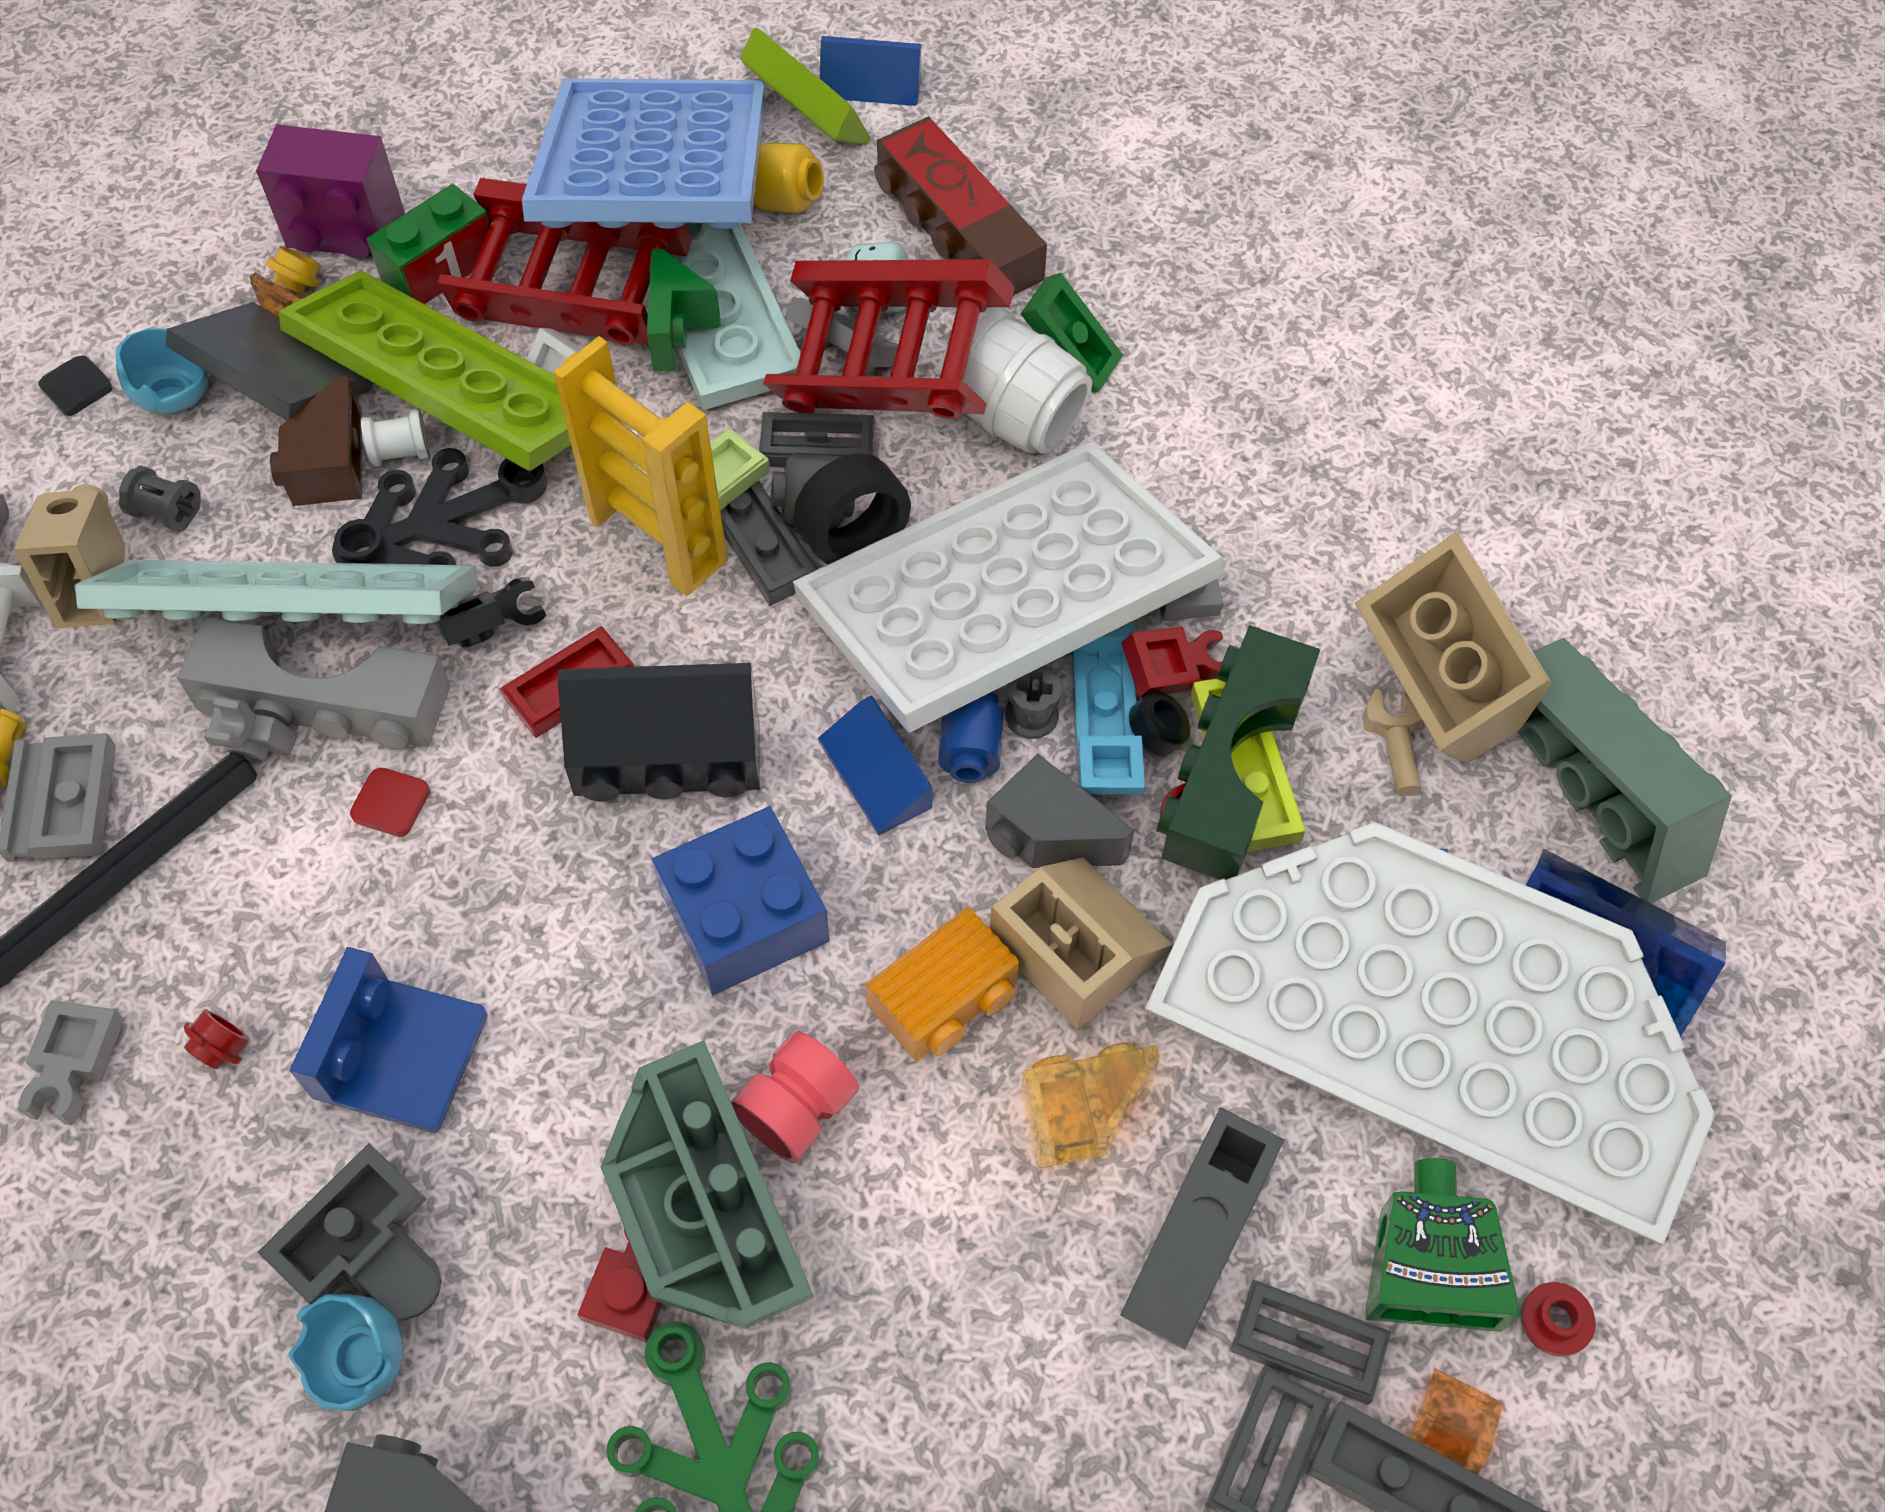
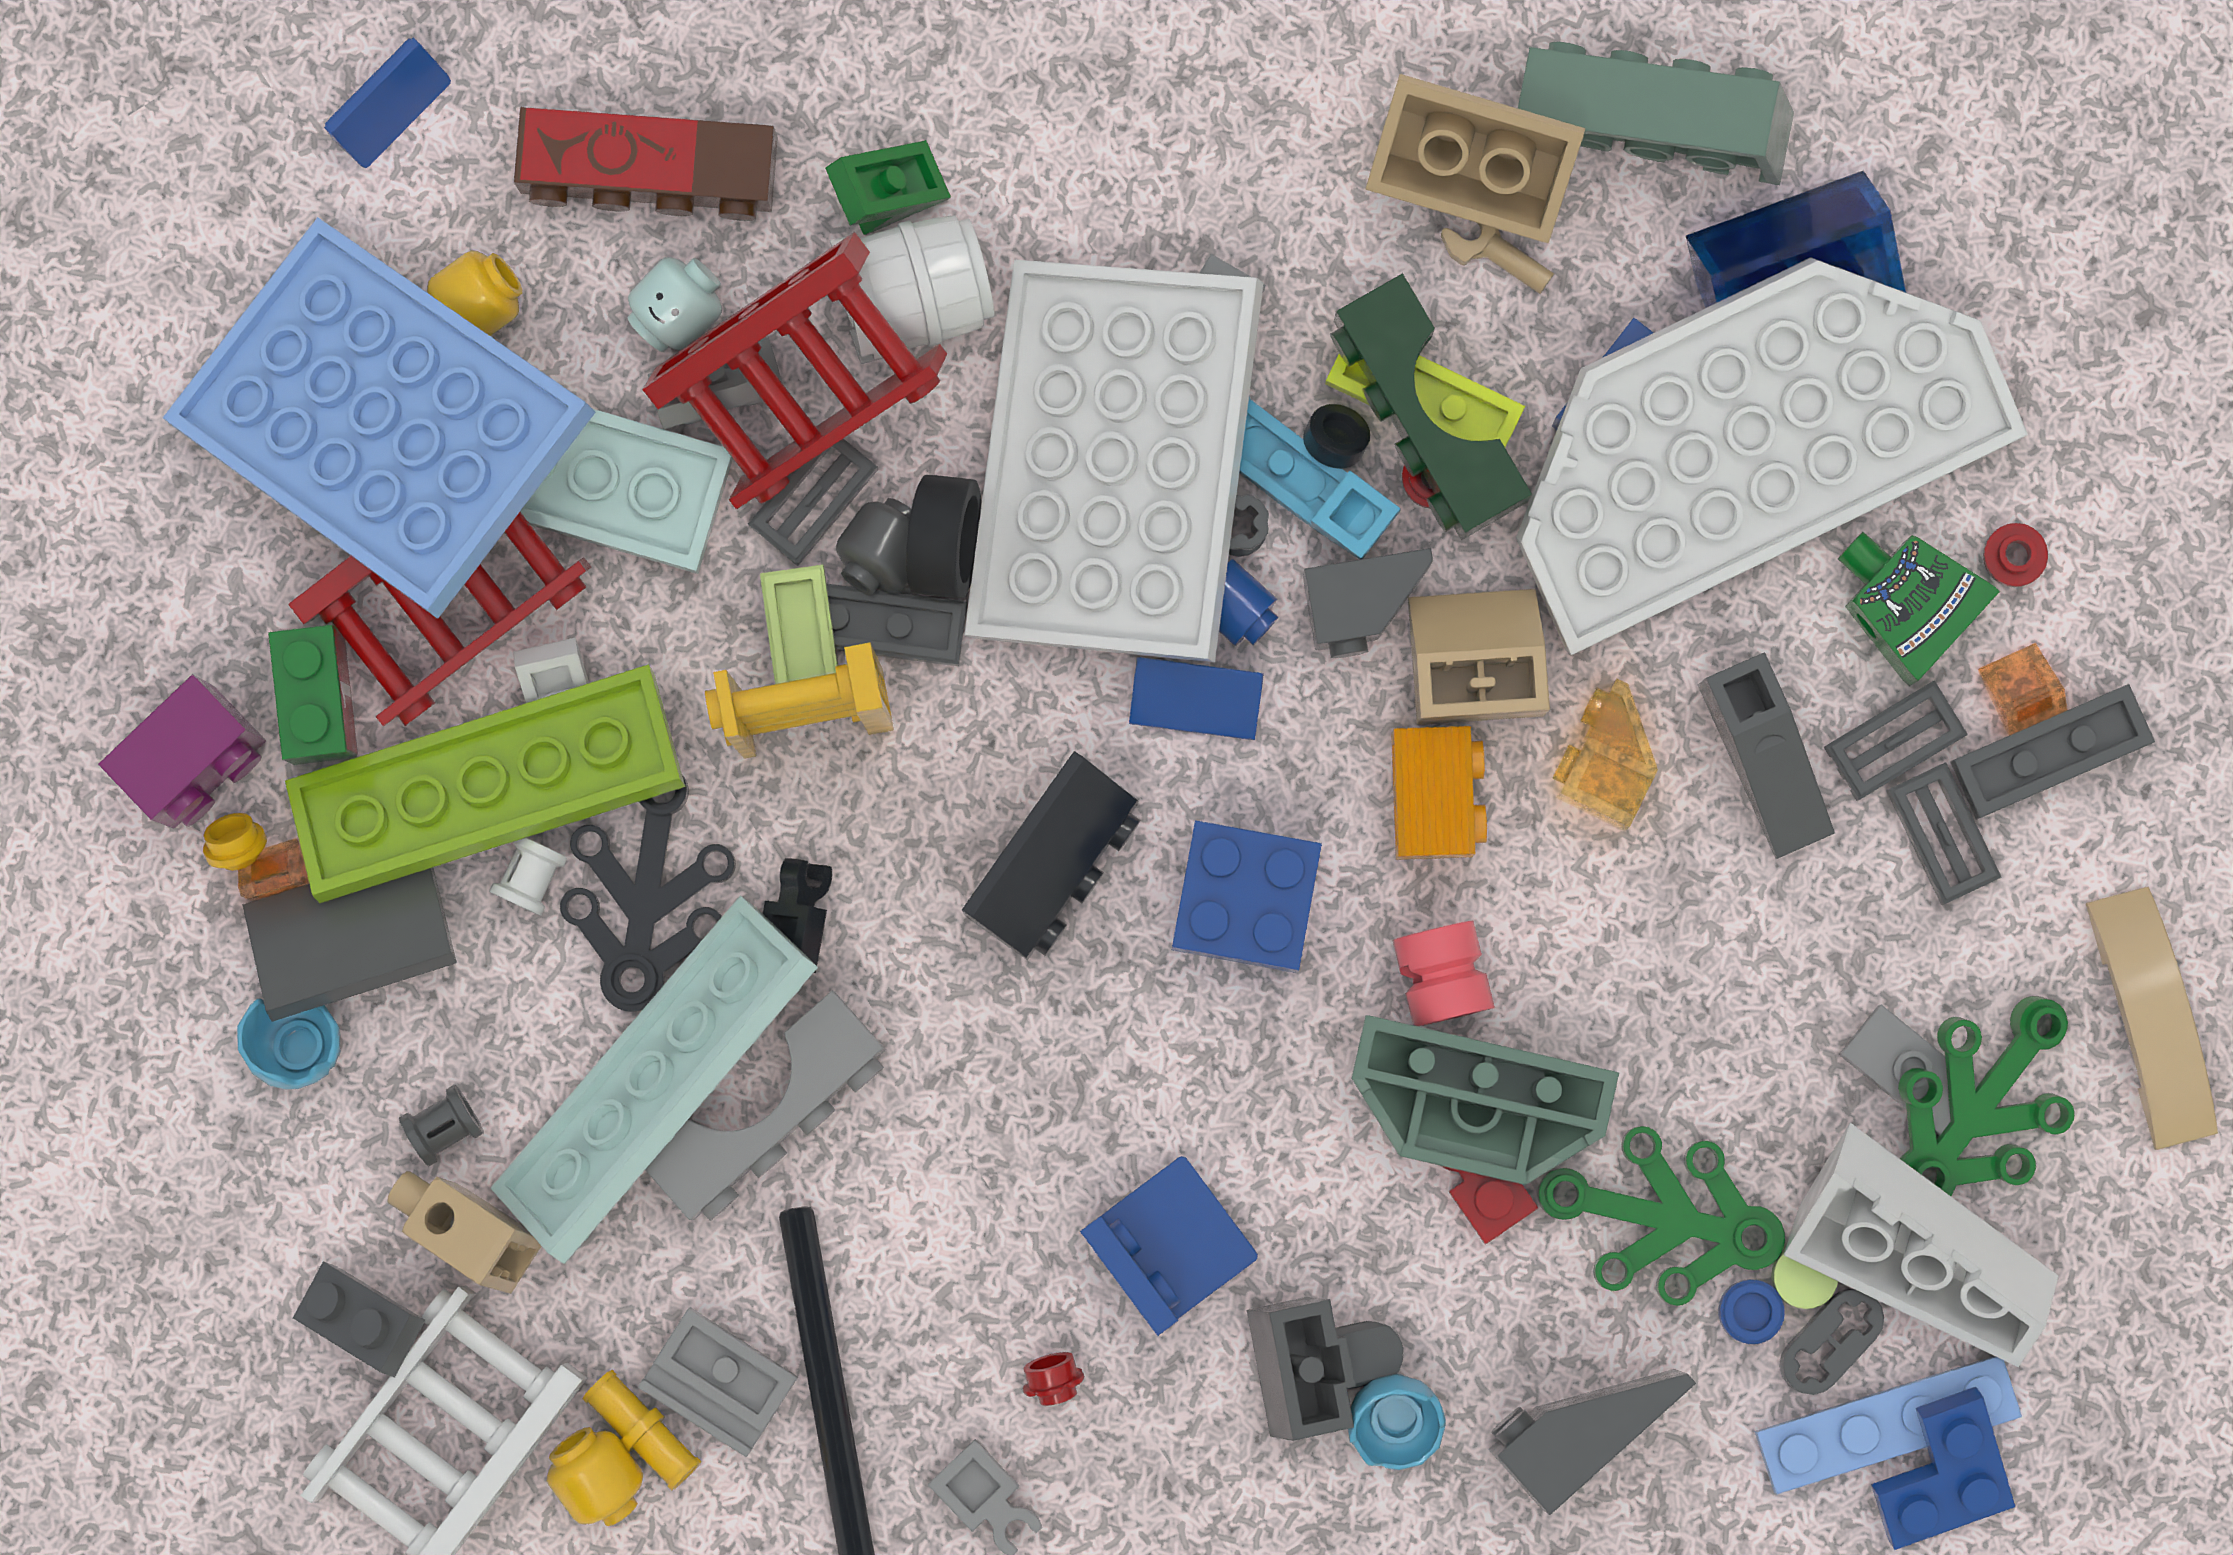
camera: 50 degrees left, 25 degrees up
(75, 385) = (218, 1127): black piece -> none
(247, 733) = (781, 1193): light grey plate -> none
(322, 448) = (495, 949): reddish brown slope -> none
(390, 802) = (921, 1114): red piece -> none
(536, 694) = (912, 891): red tile -> none
(676, 303) = (577, 523): green slope -> none
(803, 89) = (367, 192): lime slope -> none
(1168, 662) = (1287, 381): red plate -> none

